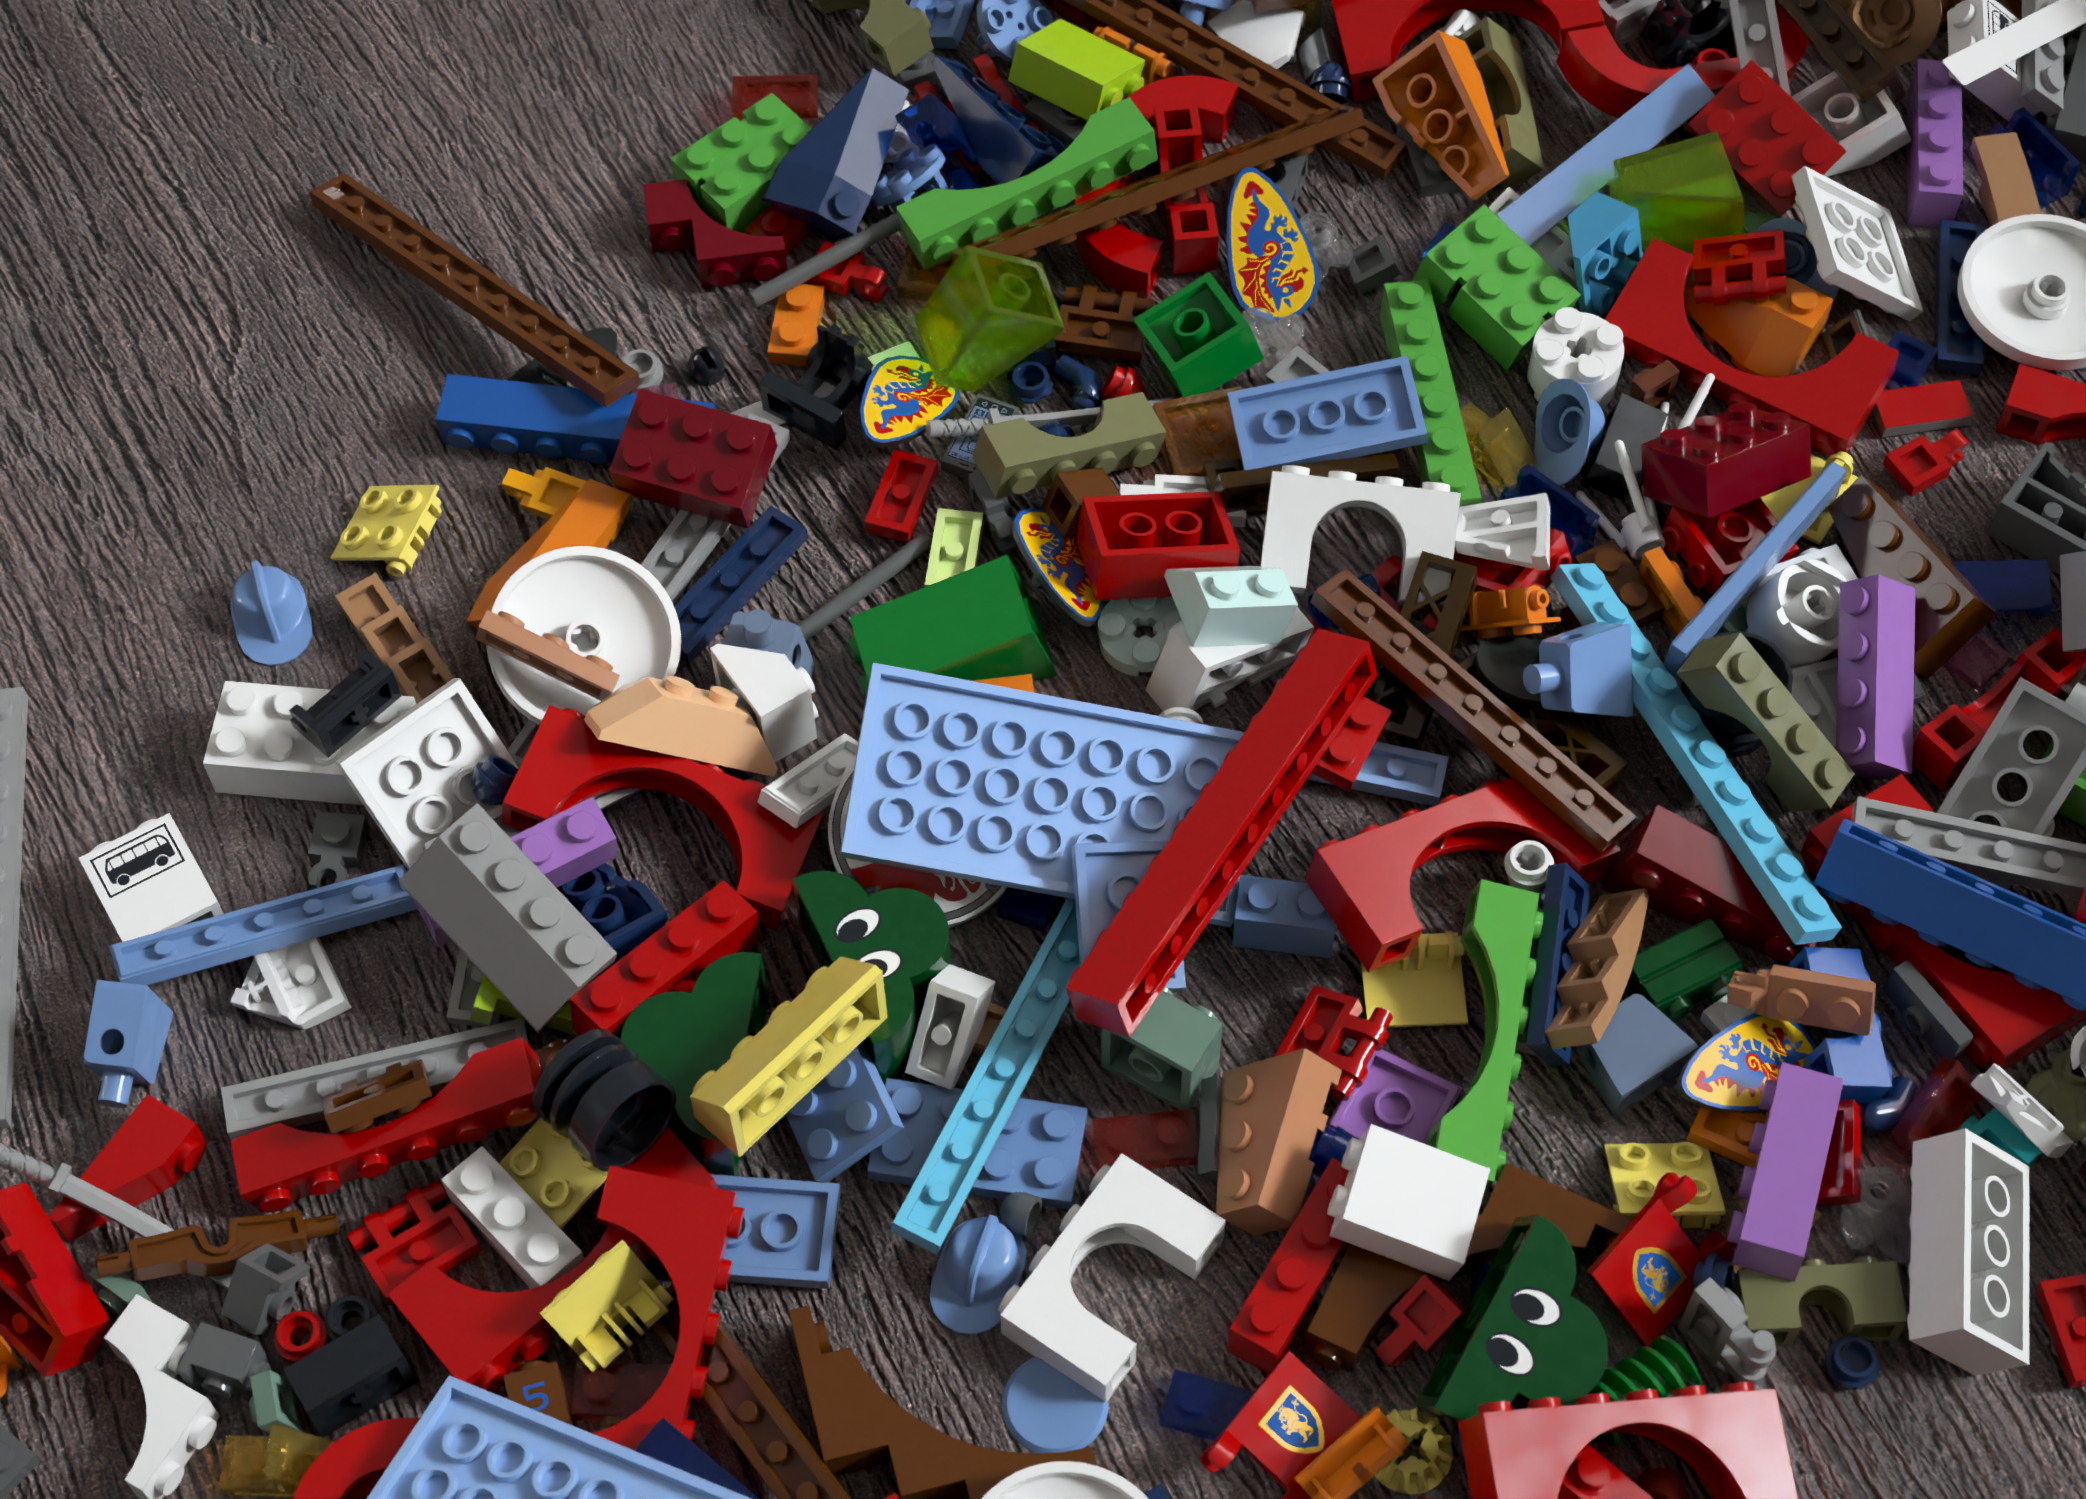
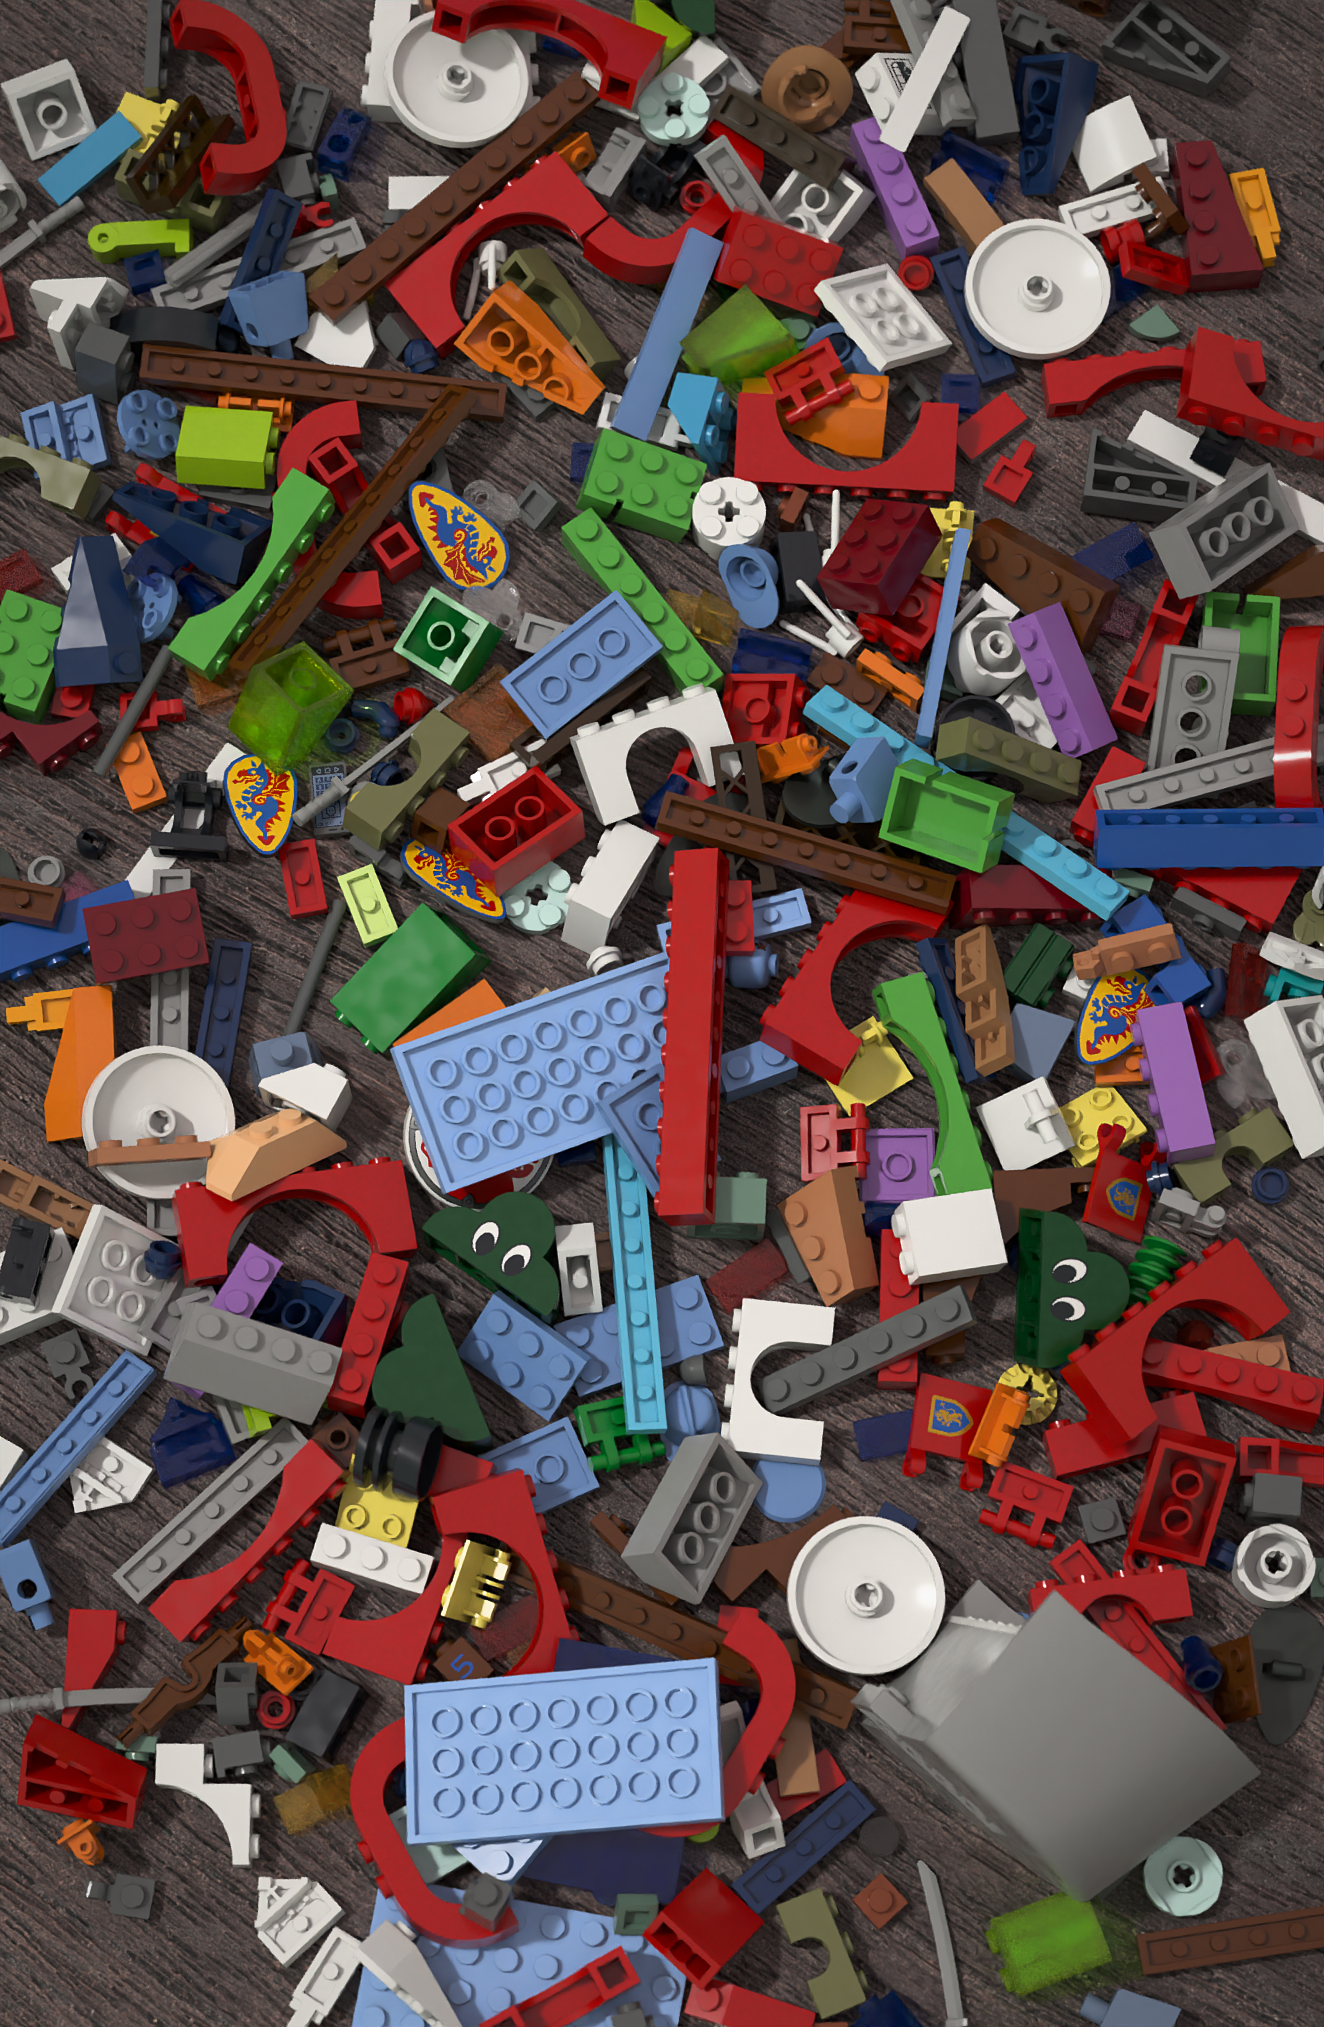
camera: 30 degrees left, 15 degrees up
(333, 1275) = (275, 1660): none -> orange hinge
(359, 1103) = (232, 1527): reddish brown plate -> none
(401, 997) = (188, 1444): none -> clear blue slope
(790, 1053) = (501, 1355): light yellow slope -> none
(811, 783) = (383, 1137): white tile -> none
(869, 1212) = (604, 1423): none -> green plate
(909, 1369) = (692, 1518): none -> light grey slope
(1232, 604) = (599, 856): light aqua slope -> none
(1237, 1285) = (867, 1351): none -> dark grey plate
(1342, 812) = (754, 970): none -> medium blue head
(1424, 1318) = (994, 1305): red plate -> none
(1507, 531) = (757, 693): white wing -> none
(1528, 865) = (900, 941): white cone -> none
(1577, 1134) = (1026, 1125): none -> white plate
(1658, 736) = (946, 815): none -> bright green piece
(1853, 934) = (1136, 883): none -> sand green plate
(1918, 229) = (916, 272): none -> red plate

